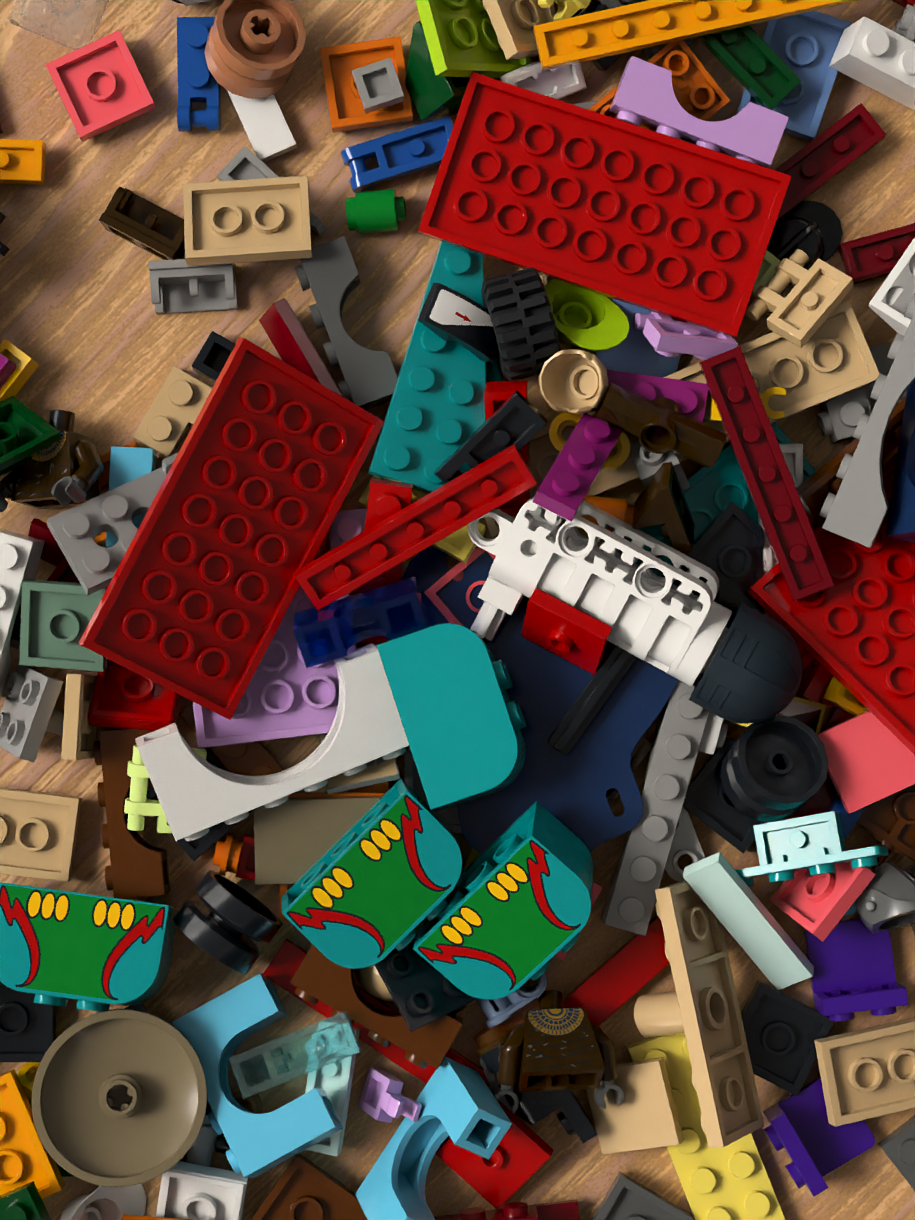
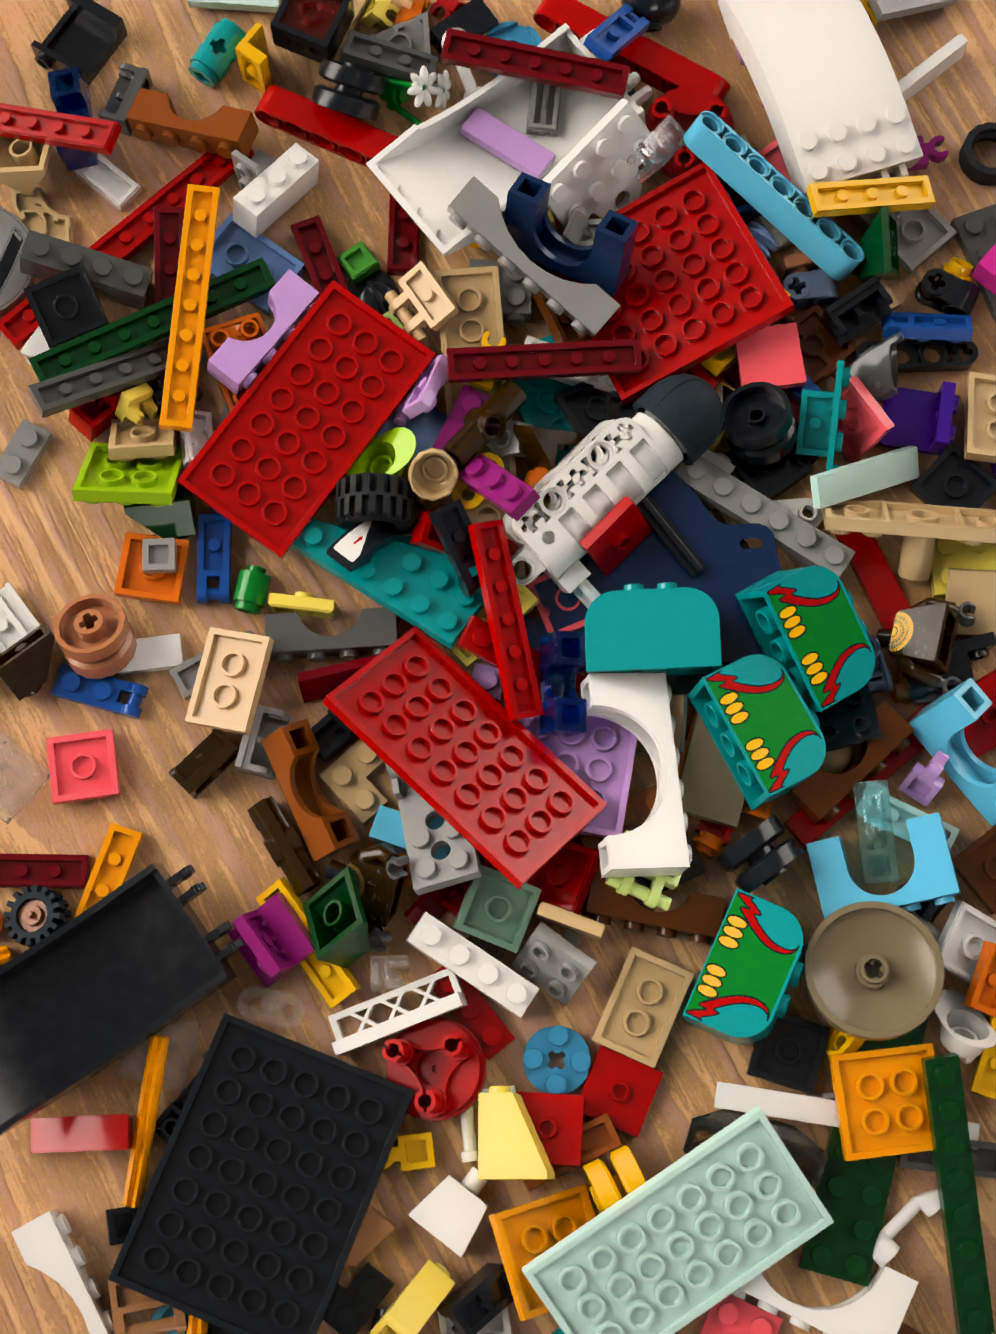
camera: 70 degrees left, 10 degrees down
(77, 353) = (285, 846): none -> dark brown piece
(113, 387) = (293, 757): none -> dark orange arch
(376, 278) = (303, 604): none -> light yellow plate
(841, 204) = (358, 262): none -> bright green tile

